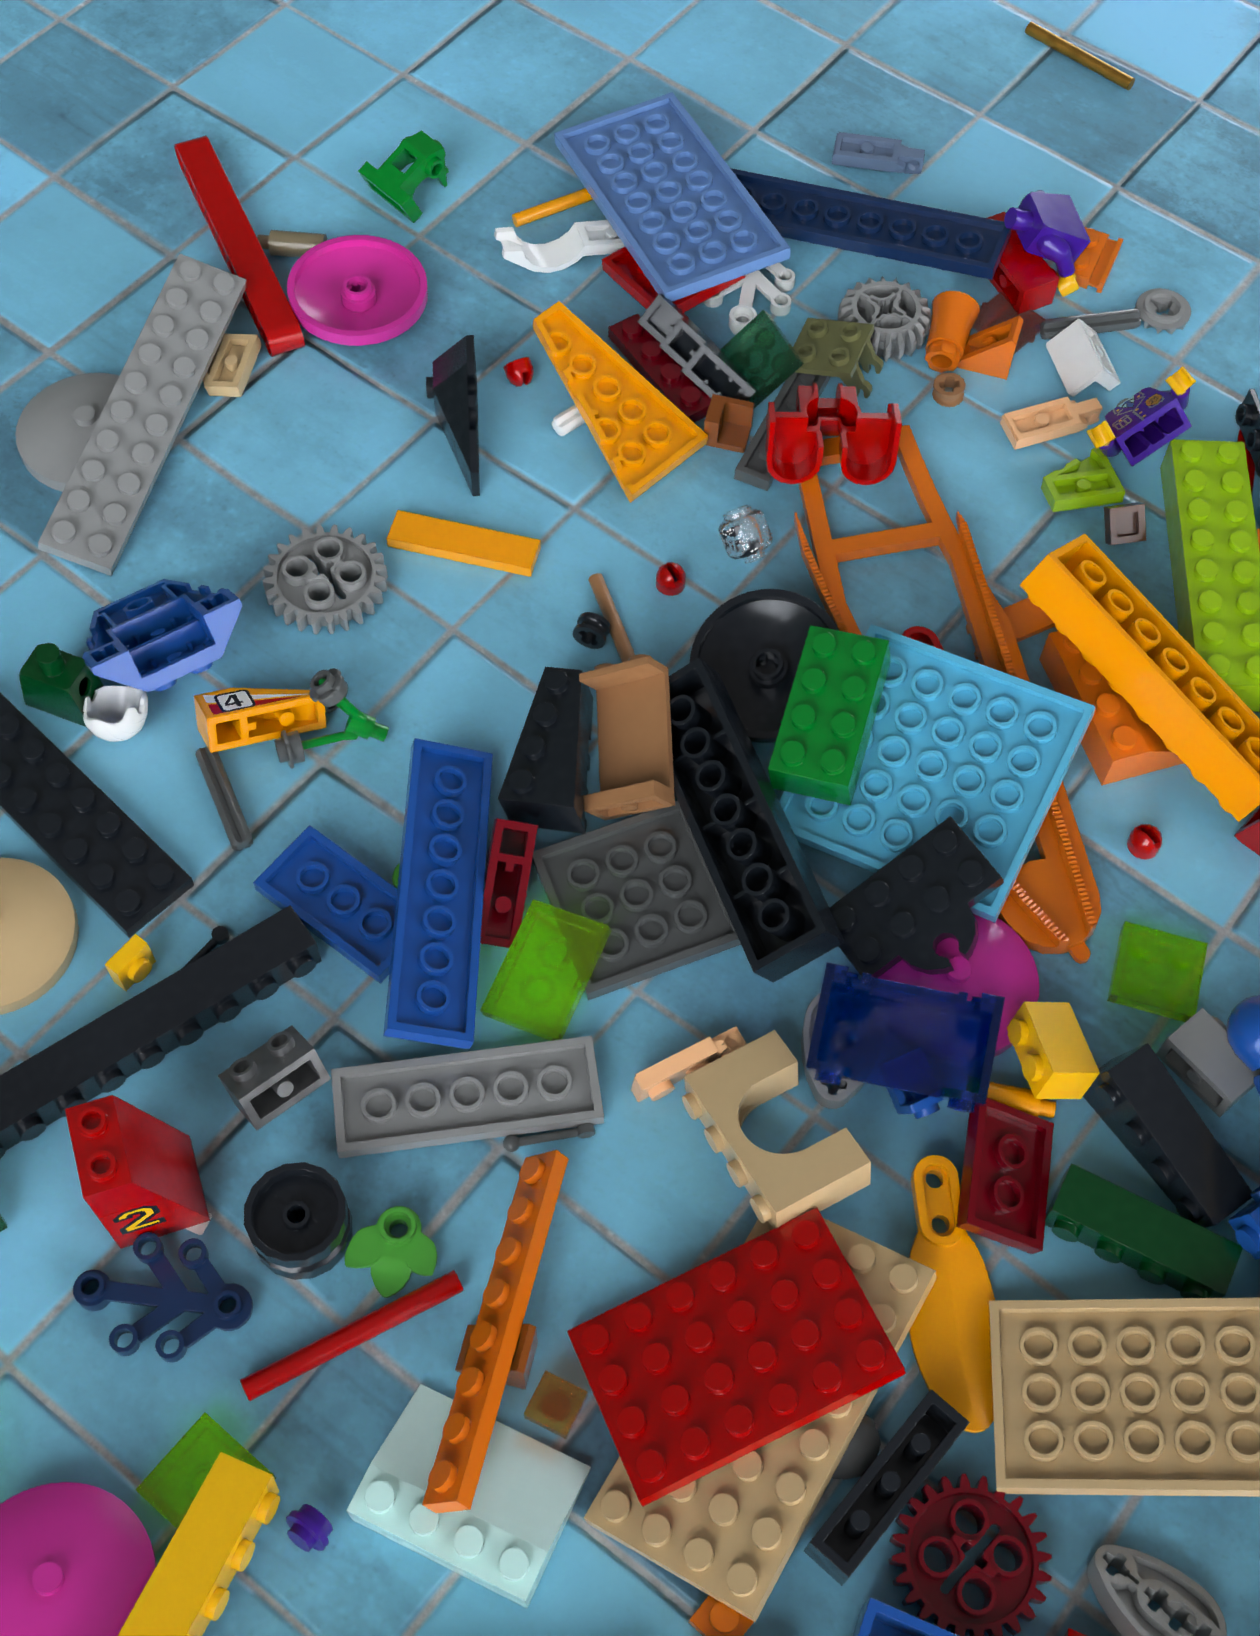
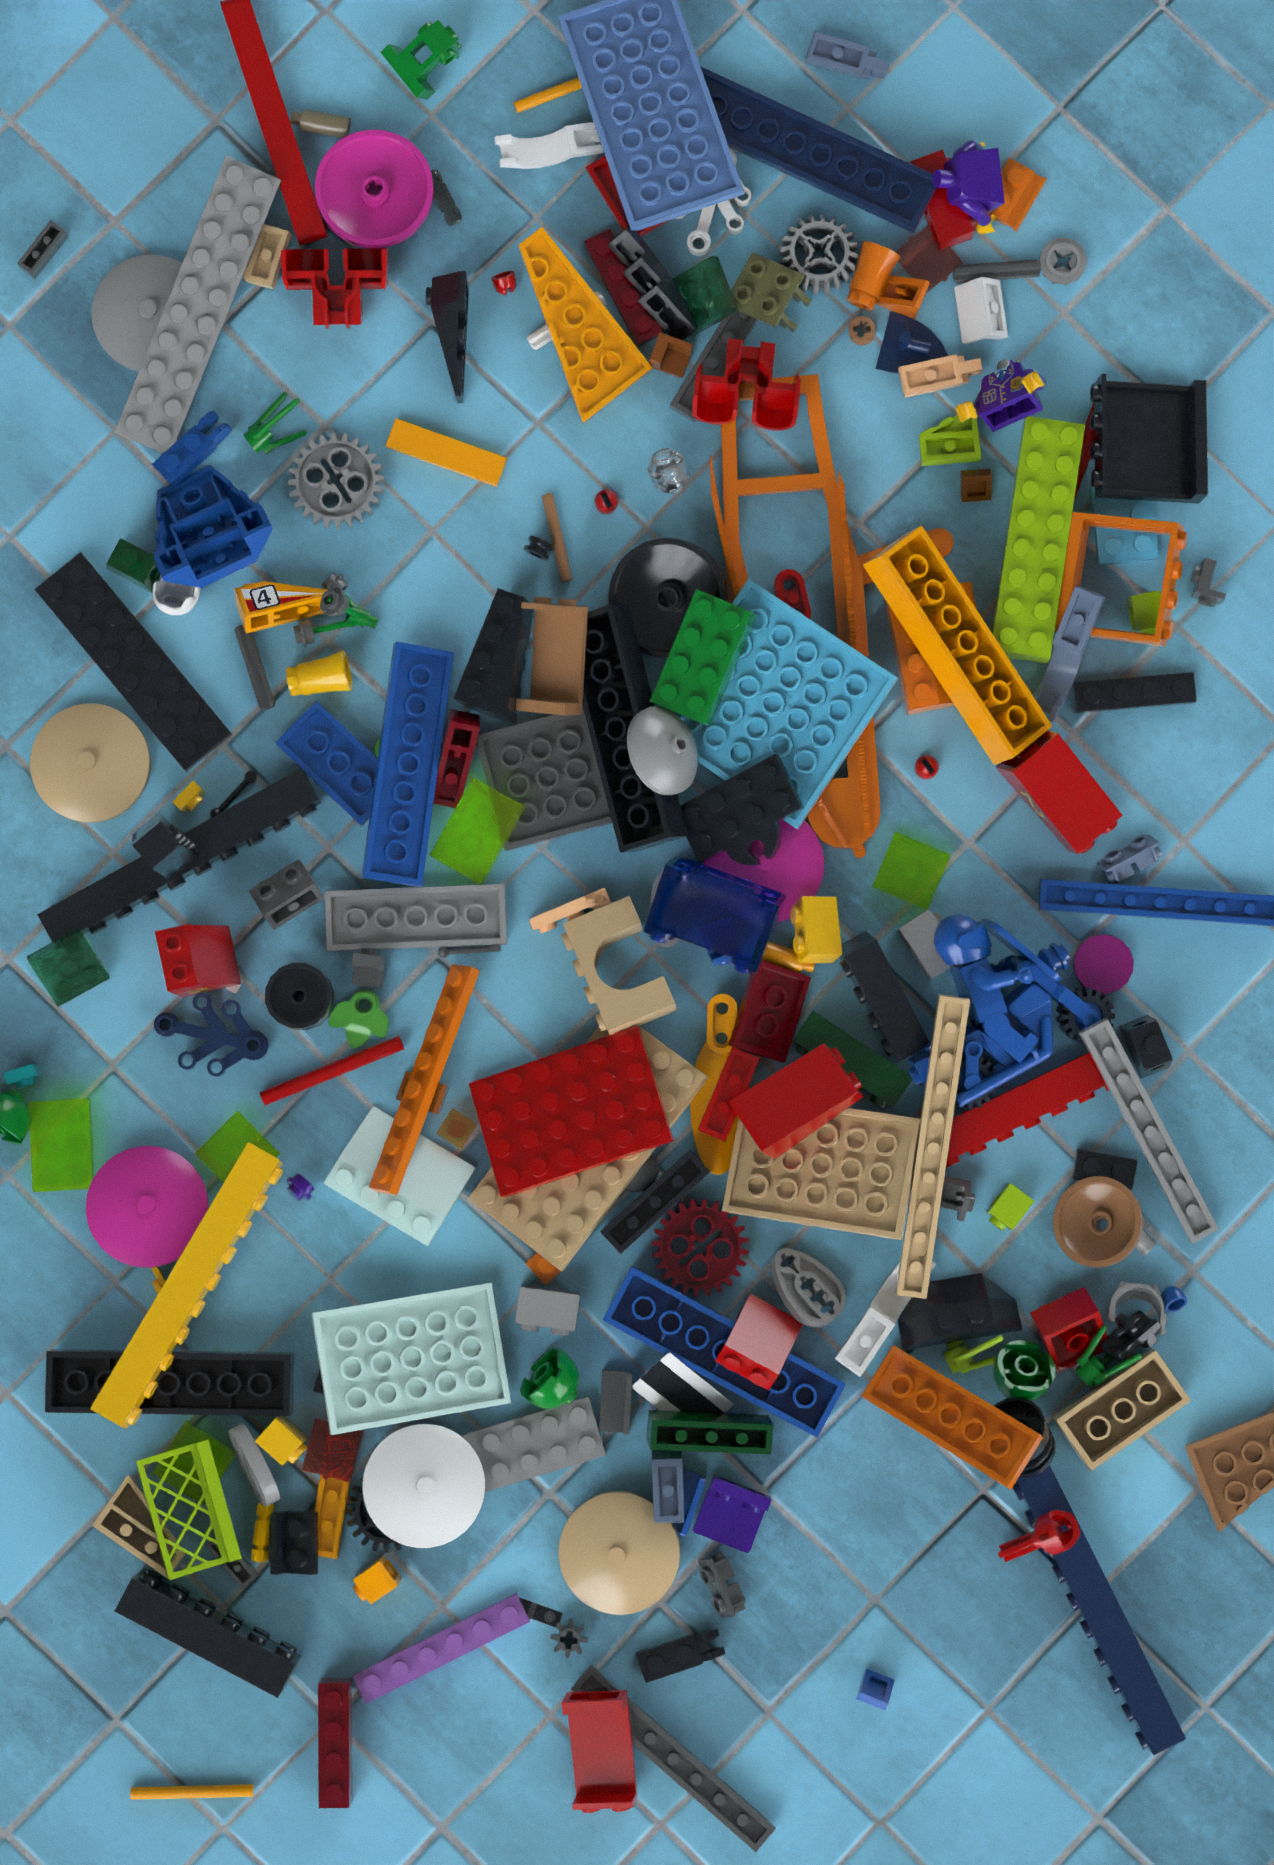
camera: 10 degrees right, 25 degrees up
(85, 997) = (164, 846): none -> black wedge
(139, 560) = (191, 449): none -> blue hinge
(227, 538) = (259, 433): none -> green plant
(313, 795) = (320, 675): none -> yellow plant
(316, 398) = (335, 303): none -> red piece
(401, 1170) = (368, 968): none -> dark grey bracket
(442, 304) = (445, 200): none -> clear smoke axle
(796, 826) = (662, 750): none -> light grey dish
(969, 1303) = (732, 1082): none -> red plate
(998, 396) = (907, 343): none -> dark blue shield
(1083, 1291) = (797, 1100): none -> red slope

